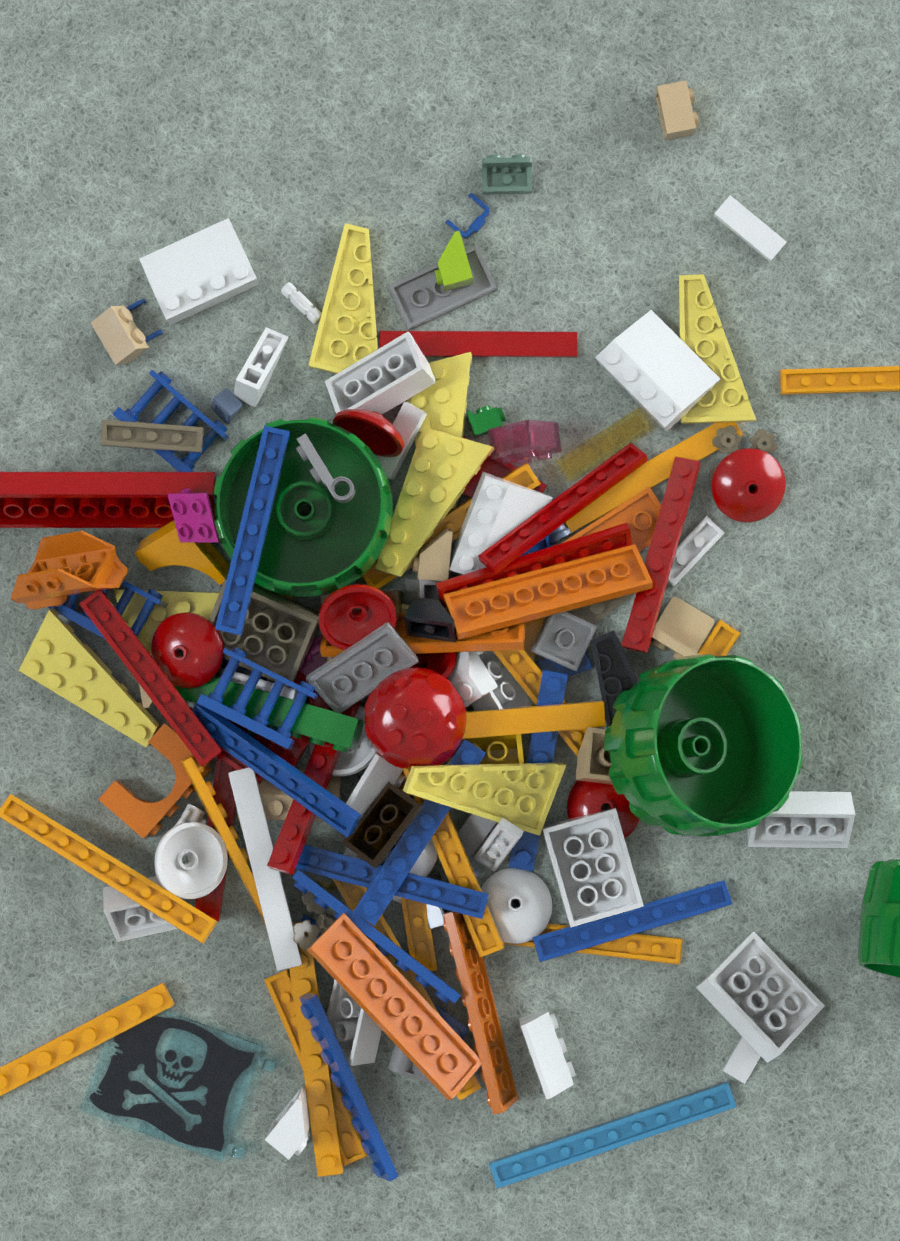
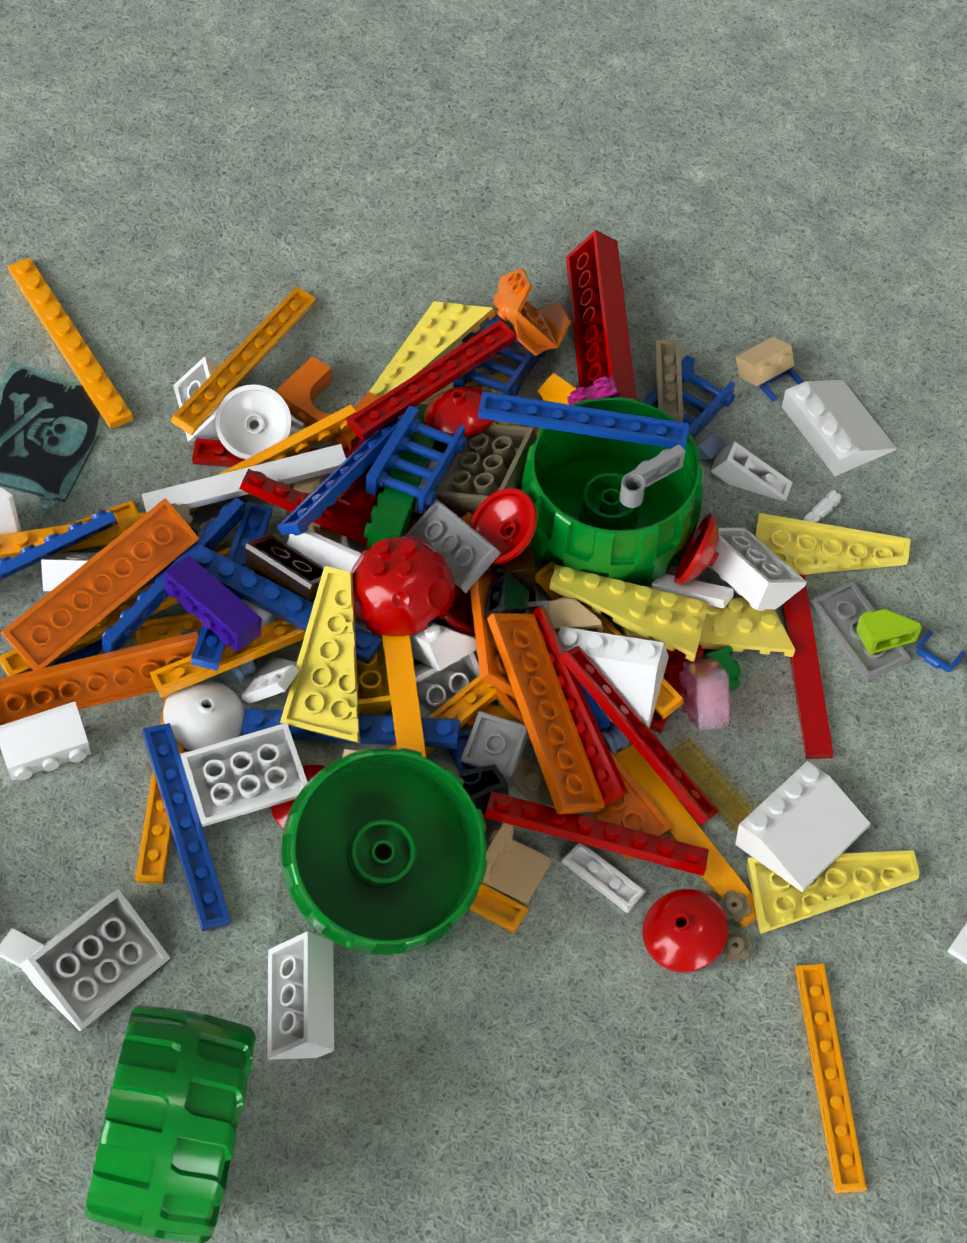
camera: 85 degrees right, 30 degrees down
(424, 900) = (212, 603): none -> dark purple brick

